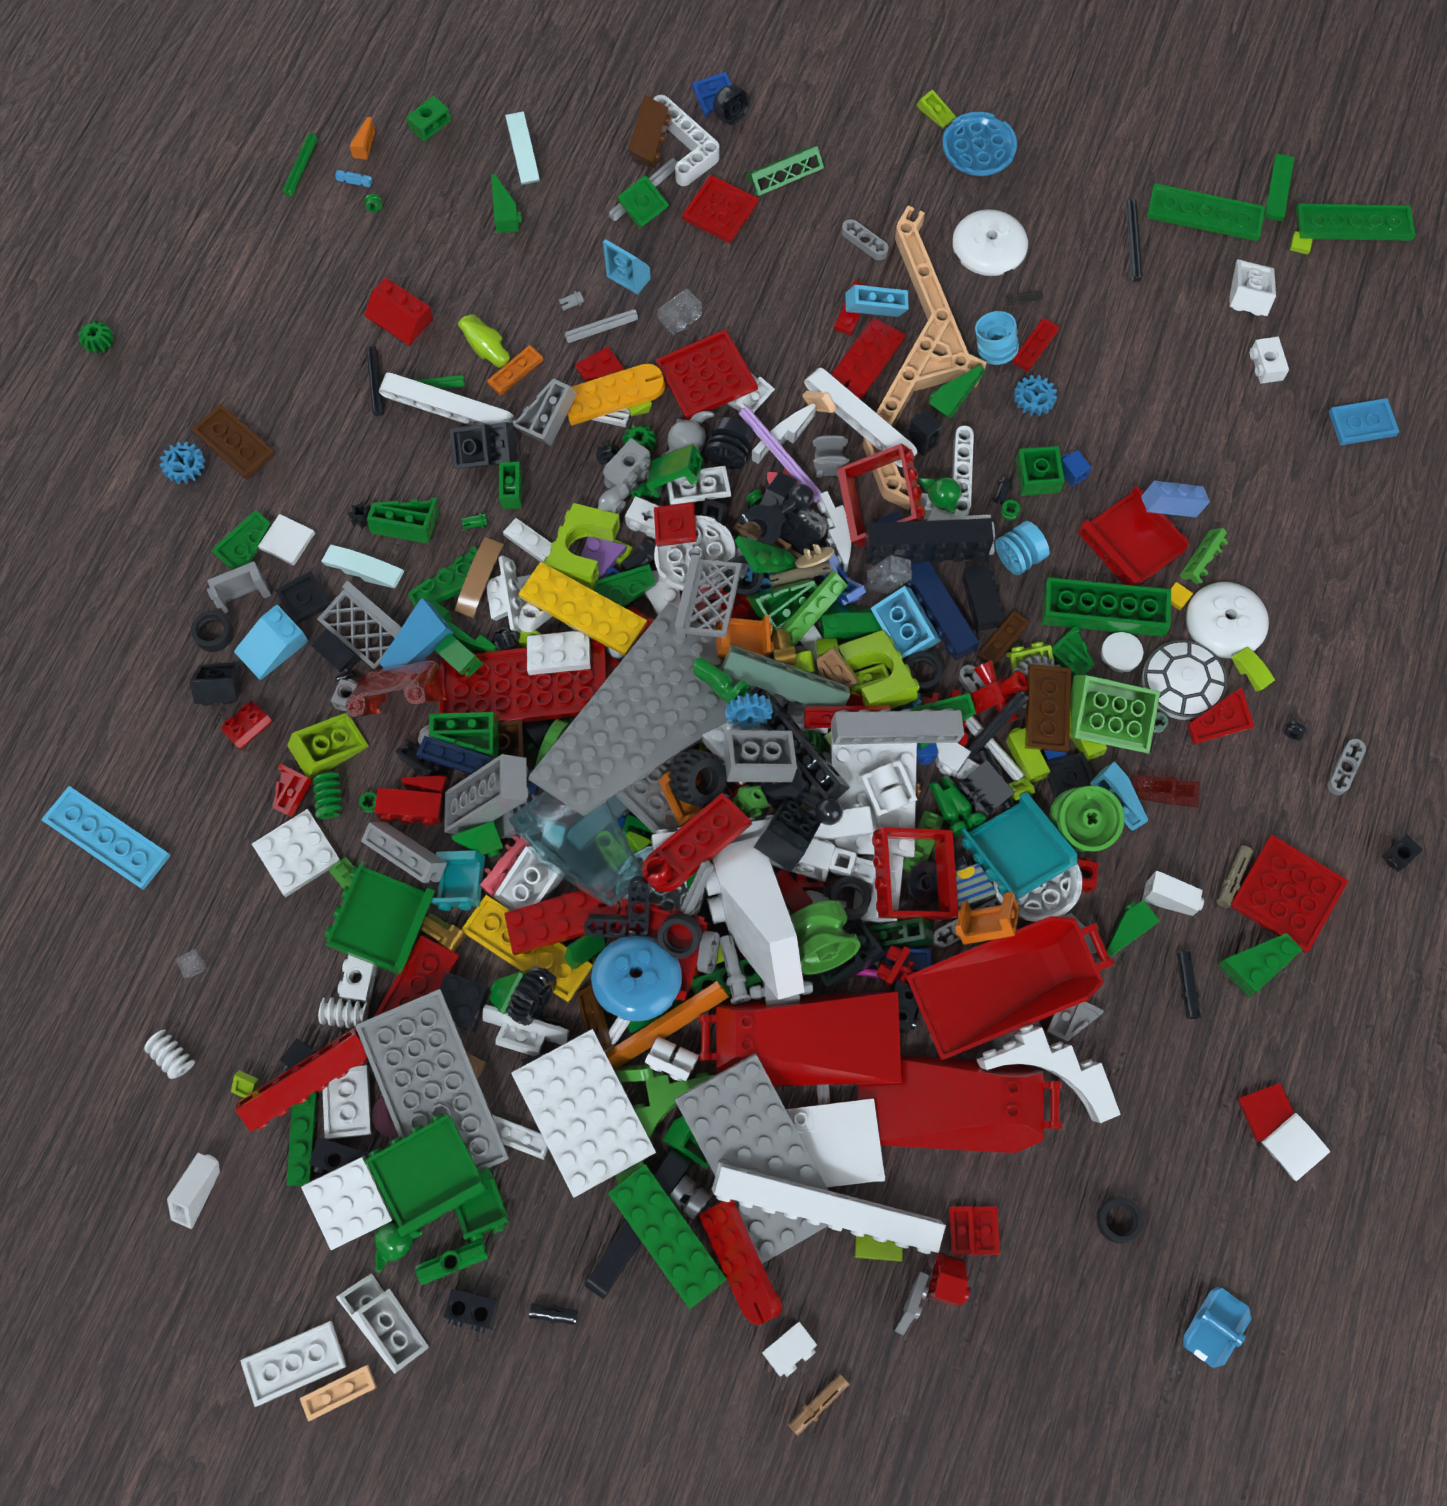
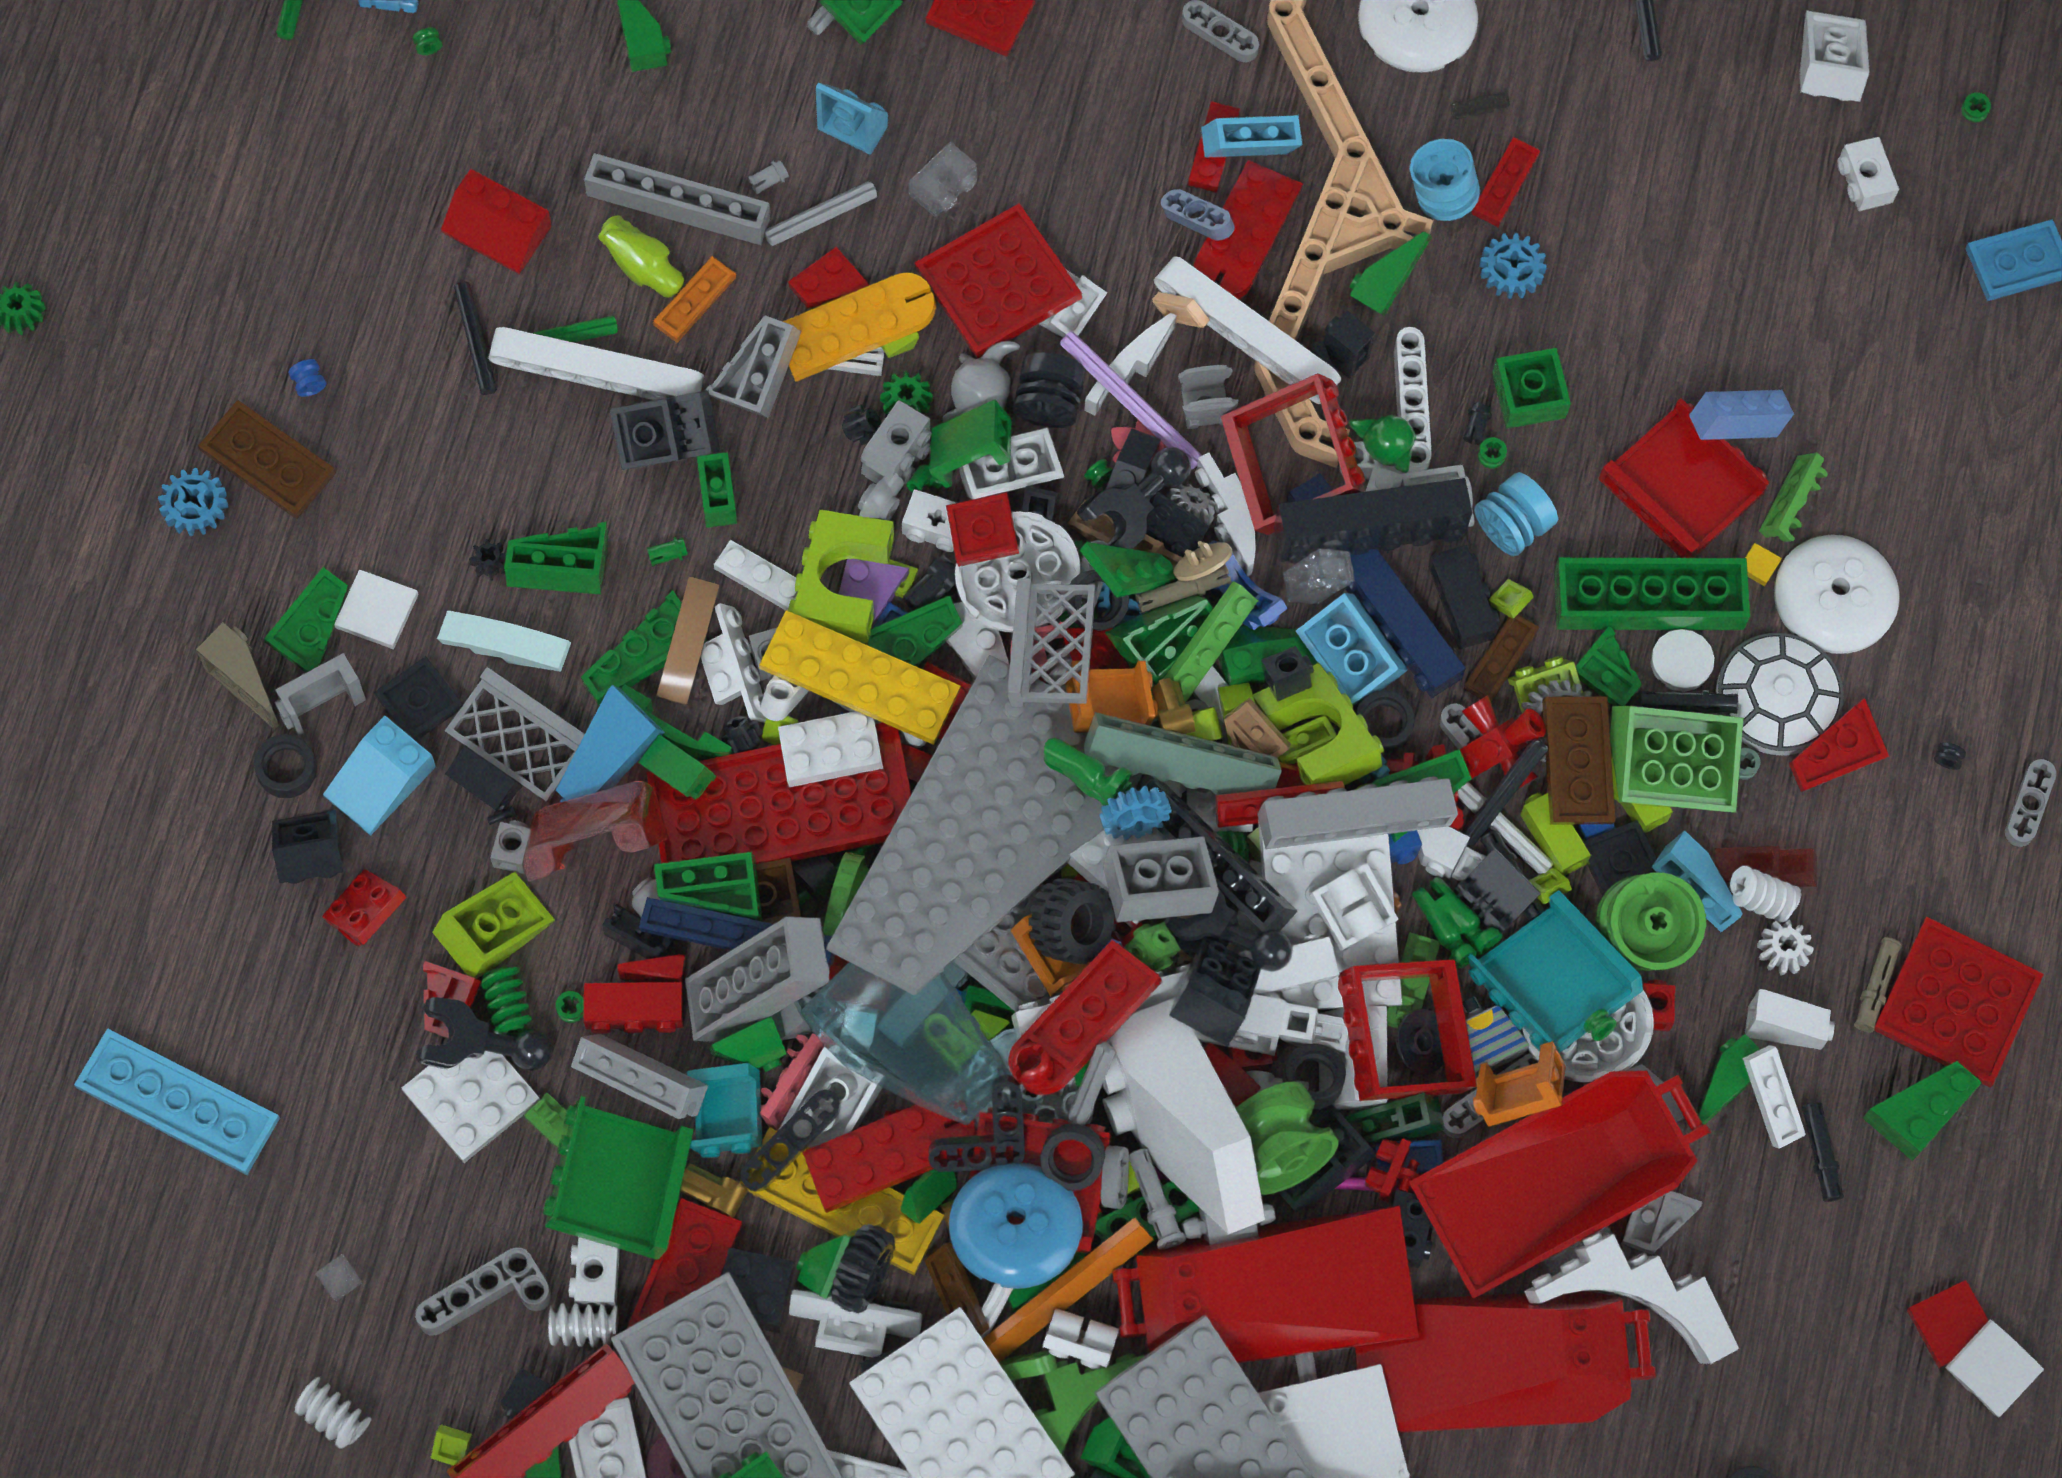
camera: 10 degrees left, 0 degrees up
(188, 563) = (230, 663): none -> dark tan slope
(266, 394) = (307, 378): none -> blue wheel
(278, 987) = (480, 1297): none -> light grey beam
(297, 815) = (471, 1038): none -> black piece
(495, 902) = (787, 1137): none -> black beam
(511, 307) = (677, 199): none -> light grey brick
(840, 351) = (1191, 204): none -> sand blue beam
(861, 633) = (1287, 673): none -> black brick
(1013, 602) = (1510, 598): none -> lime tile
(1045, 883) = (1599, 1024): none -> green bush
(1075, 468) = (1584, 377): blue brick -> none
(1128, 678) = (1691, 702): none -> black pin
(1159, 944) = (1774, 1096): none -> white plate
(1164, 808) = (1764, 894): none -> white piece
(1181, 851) = (1776, 938): none -> white gear
(1251, 665) = (1884, 668): lime slope -> none
(1341, 331) = (1976, 98): none -> green bush

